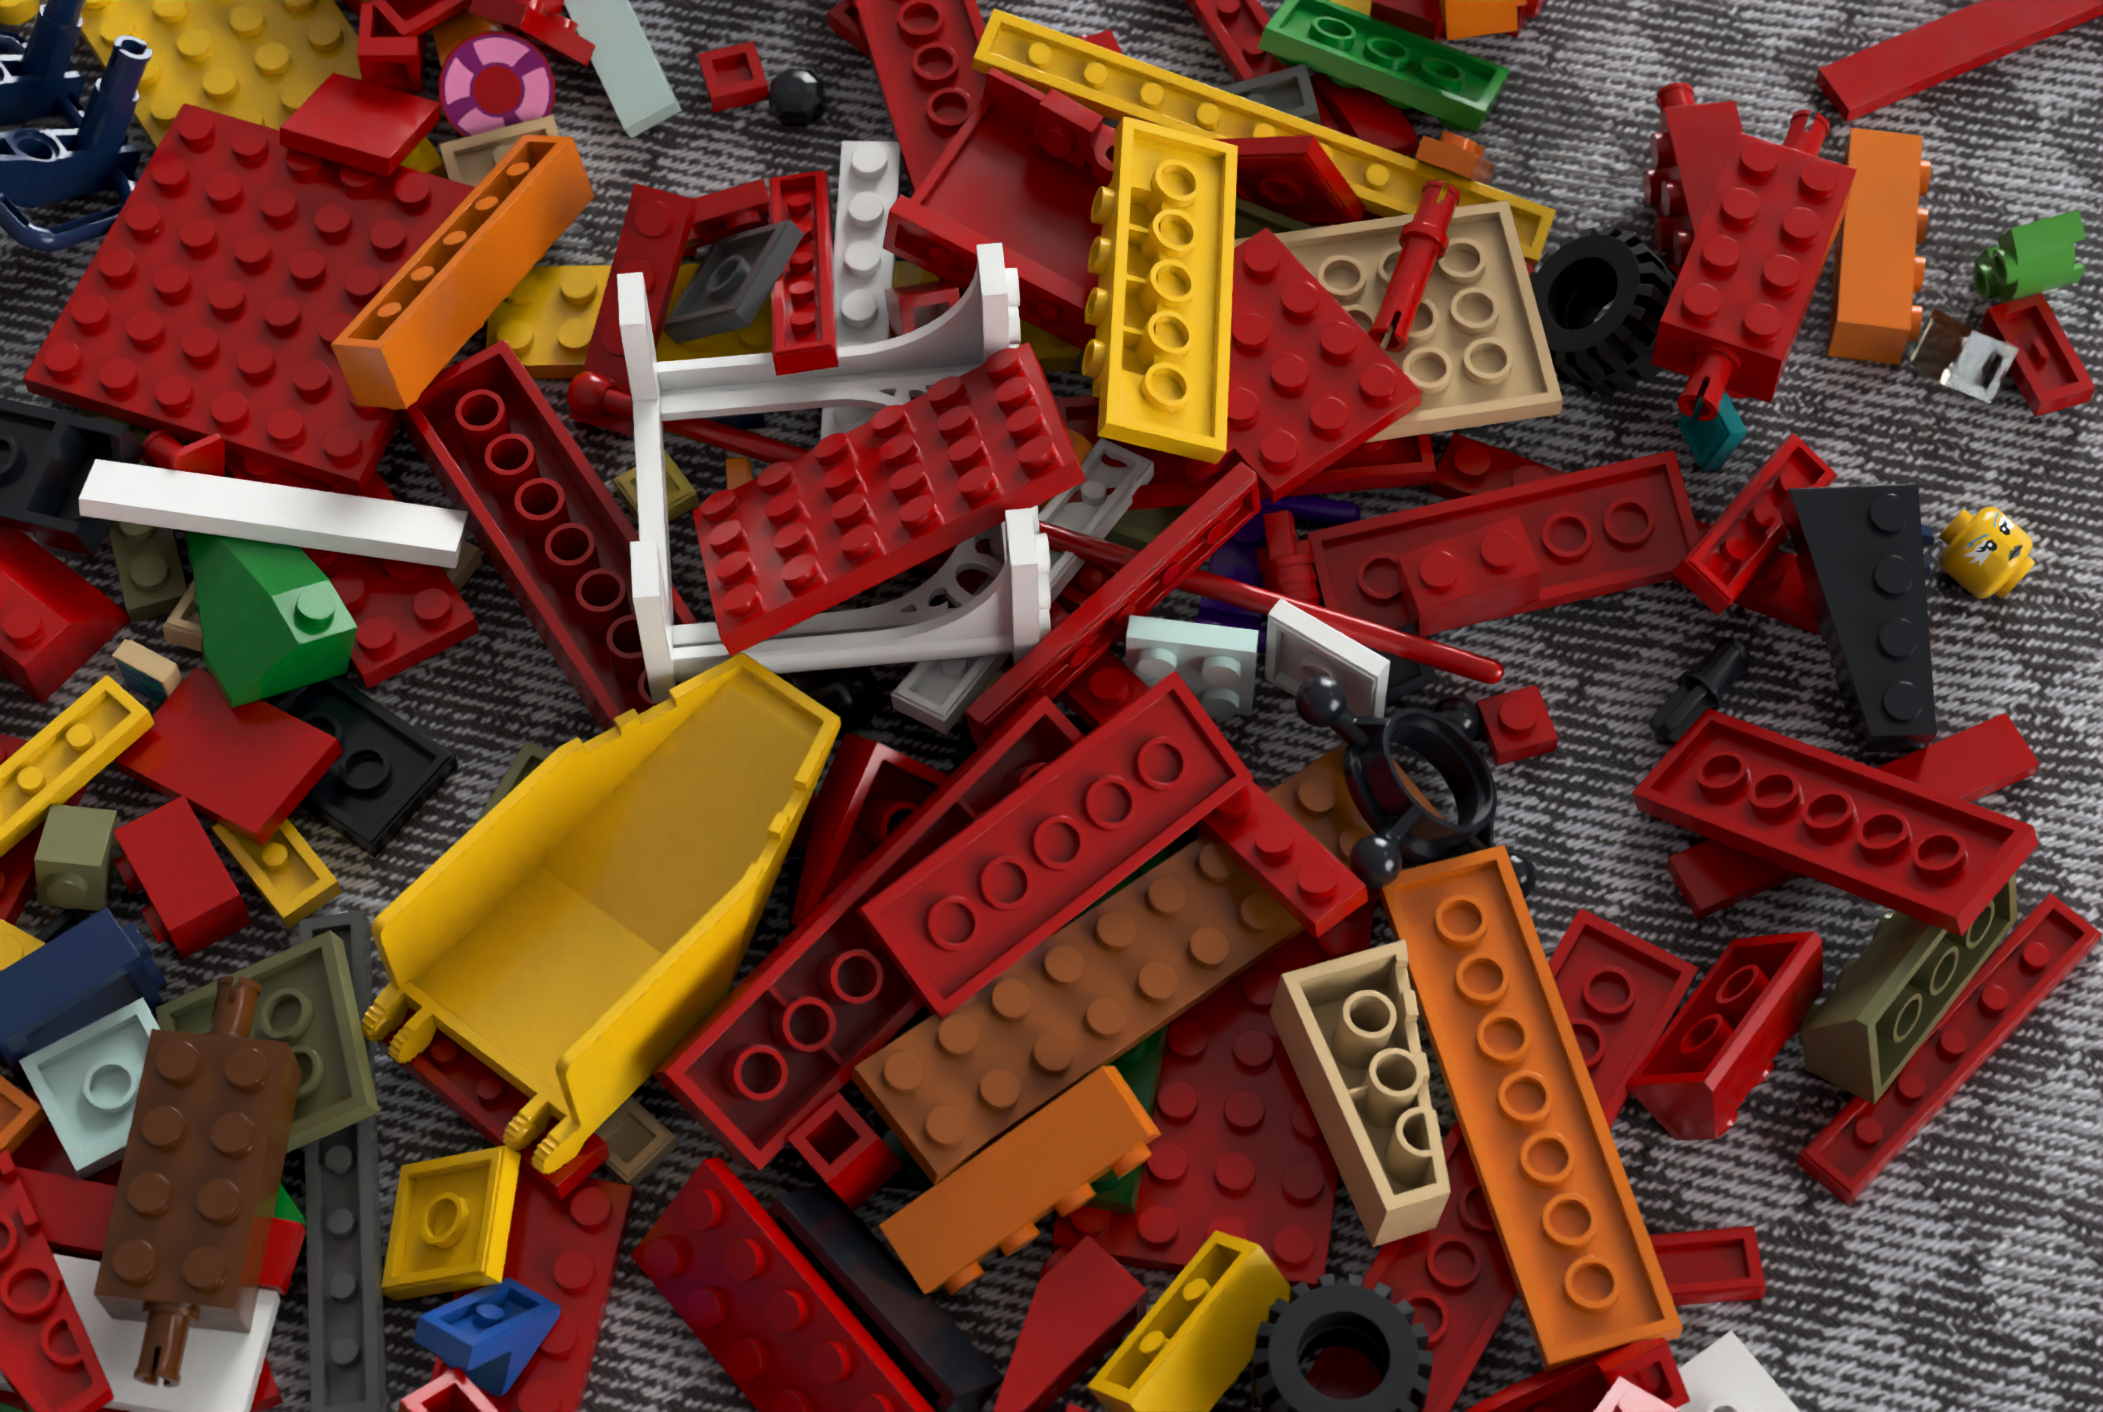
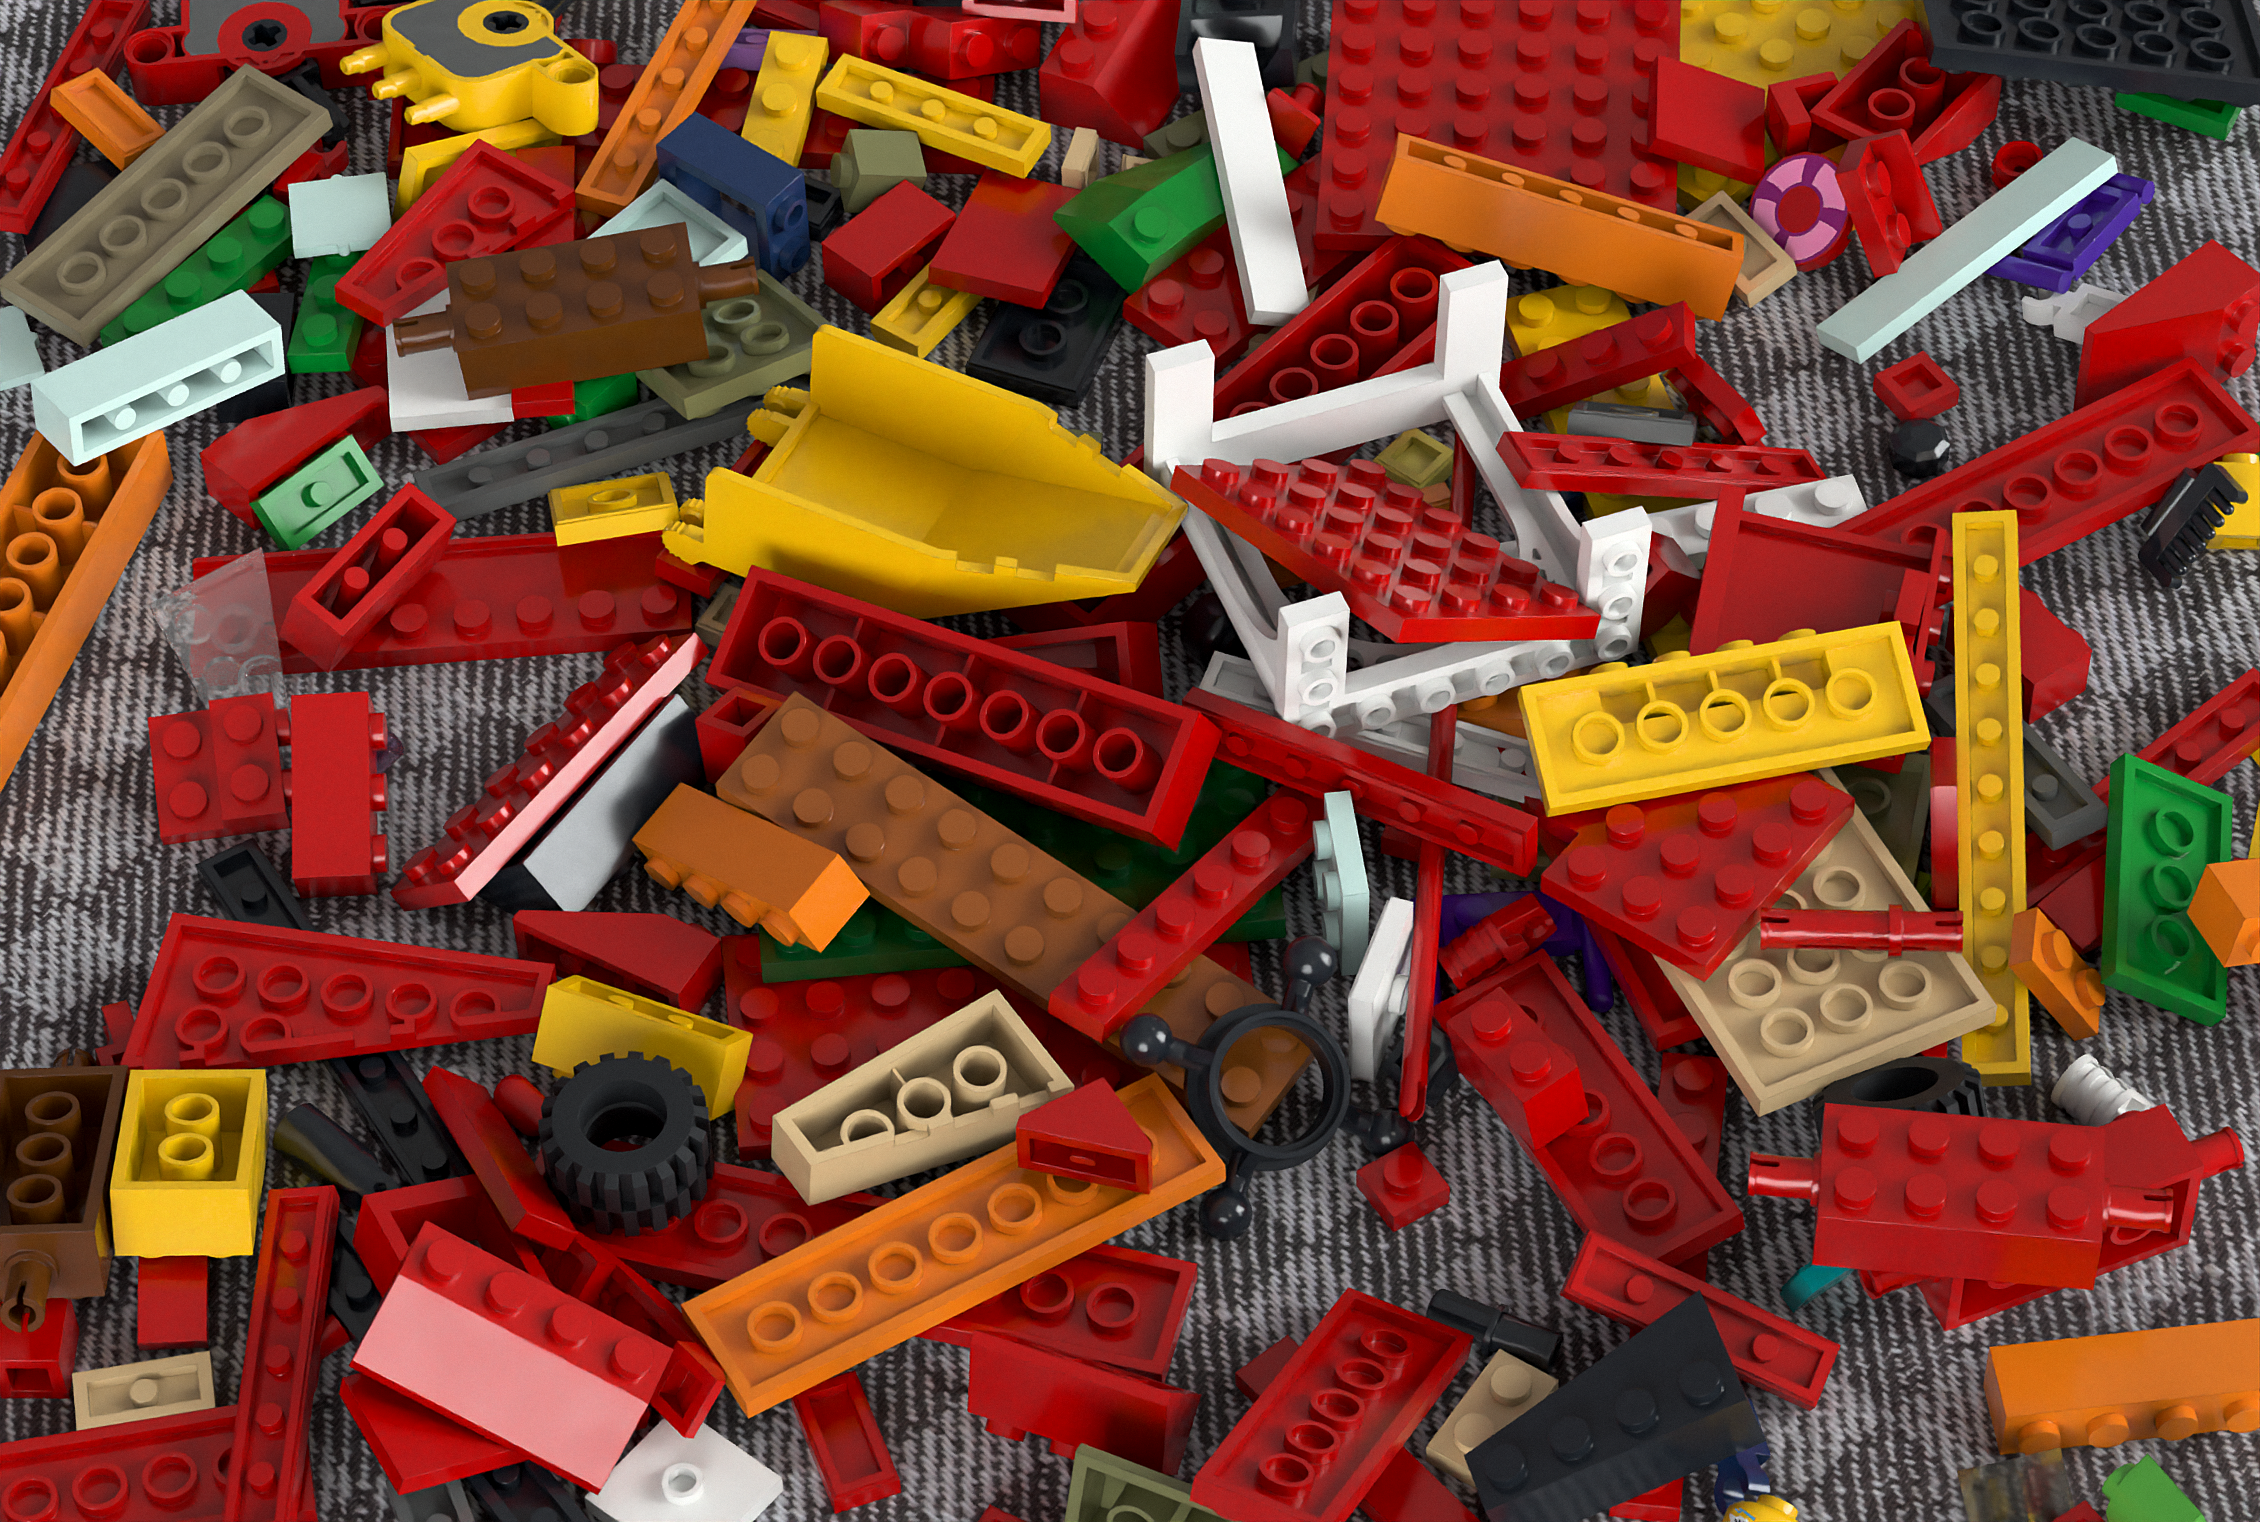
camera: 75 degrees right, 10 degrees down
(489, 1332) = (517, 551): blue slope -> none
(1054, 845) = (1064, 774): red plate -> none
(1466, 938) = (1086, 1139): none -> red slope
(1585, 176) = (2094, 1093): none -> white hinge
(1780, 704) = (1493, 1401): none -> tan plate

